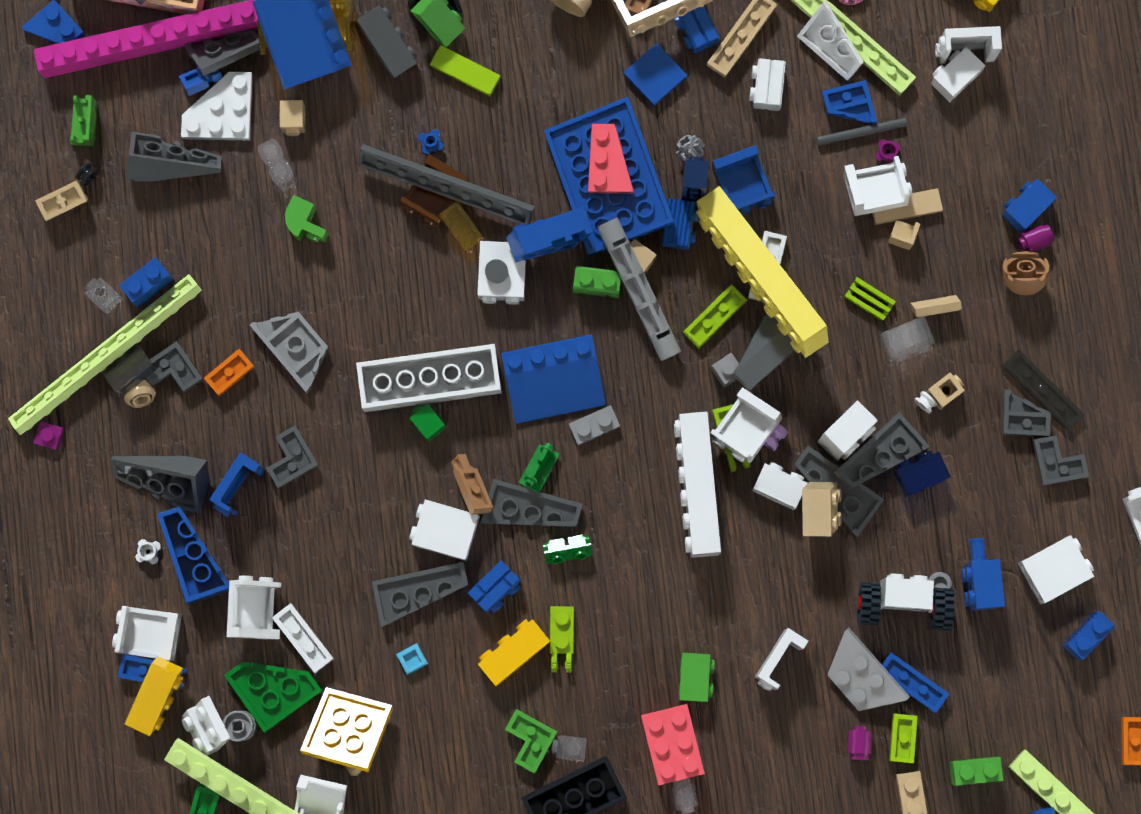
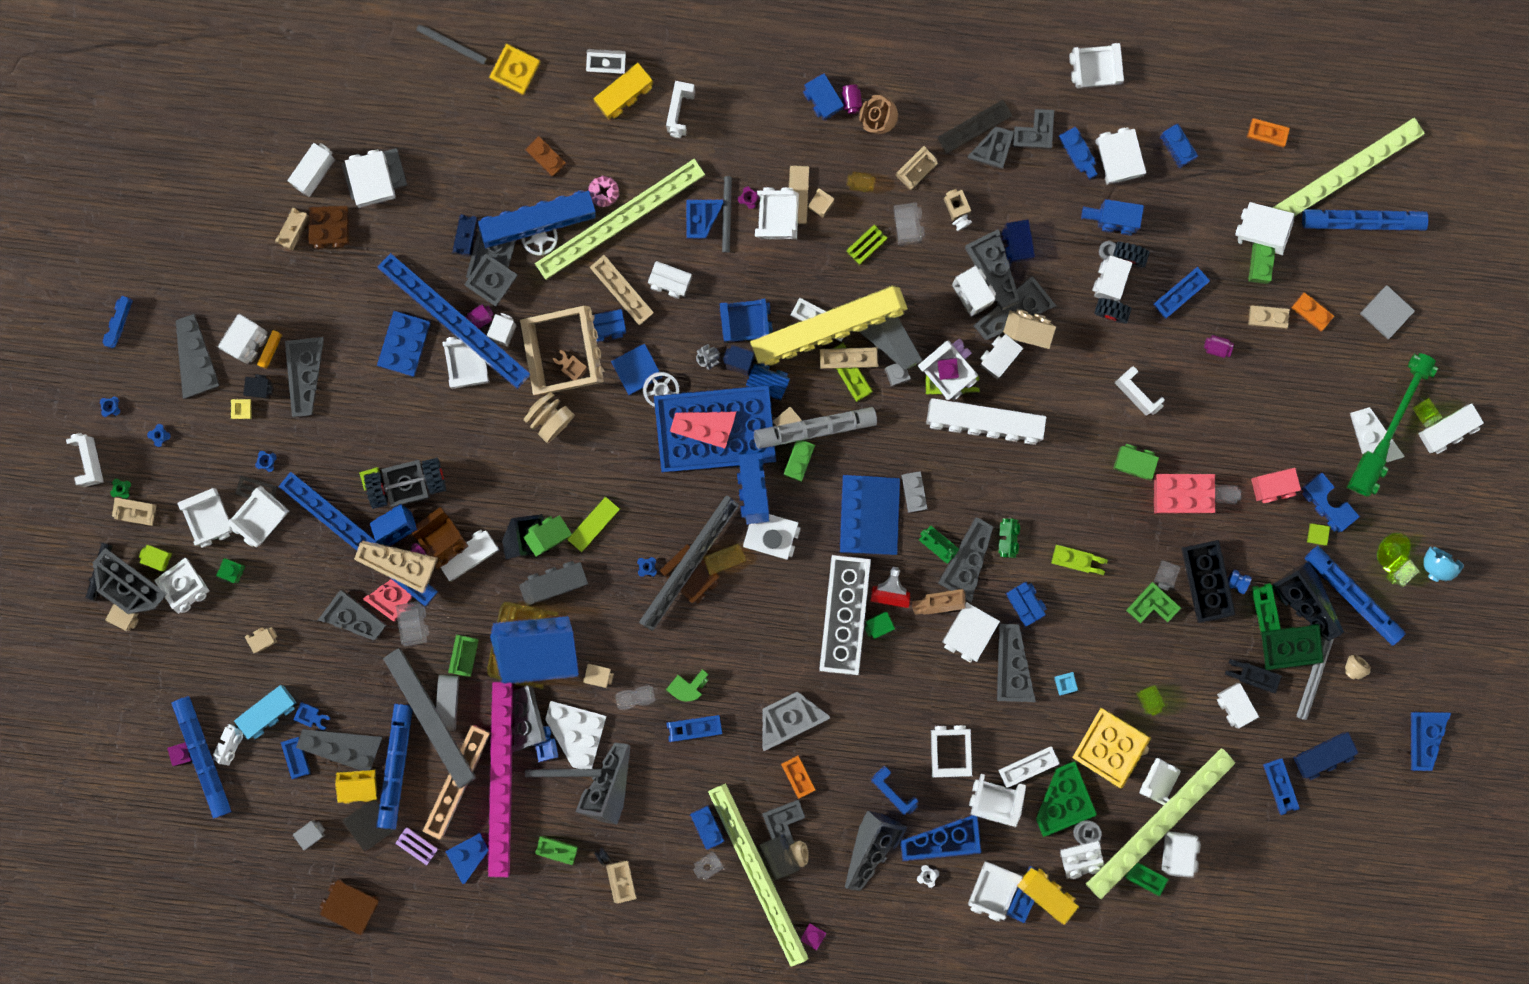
camera: 80 degrees left, 5 degrees up
(172, 106) = (564, 773): none -> dark grey bar
(258, 241) = (695, 728): none -> blue plate
(275, 546) = (951, 772): none -> white window
(297, 461) = (885, 738): dark grey plate -> none
(415, 764) = (1151, 700): none -> clear neon green brick
(470, 426) = (891, 591): none -> piece
(513, 651) = (1081, 601): yellow brick -> none
(640, 104) = (659, 388): none -> white wheel
(731, 309) = (848, 358): none -> tan tile
(748, 424) = (947, 368): none -> magenta plate
(830, 42) = (648, 219): white wing -> none
(863, 676) = (1168, 330): light grey wing -> none
(903, 738) = (1222, 311): lime plate -> none
(936, 306) = (886, 193): tan tile -> none
(941, 273) = (860, 182): none -> clear yellow brick
(957, 74) = (700, 124): white brick -> none
(975, 334) = (917, 168): none -> tan hinge
(1019, 764) = (1265, 226): none -> white panel
(1047, 519) = (1078, 152): none -> blue hinge

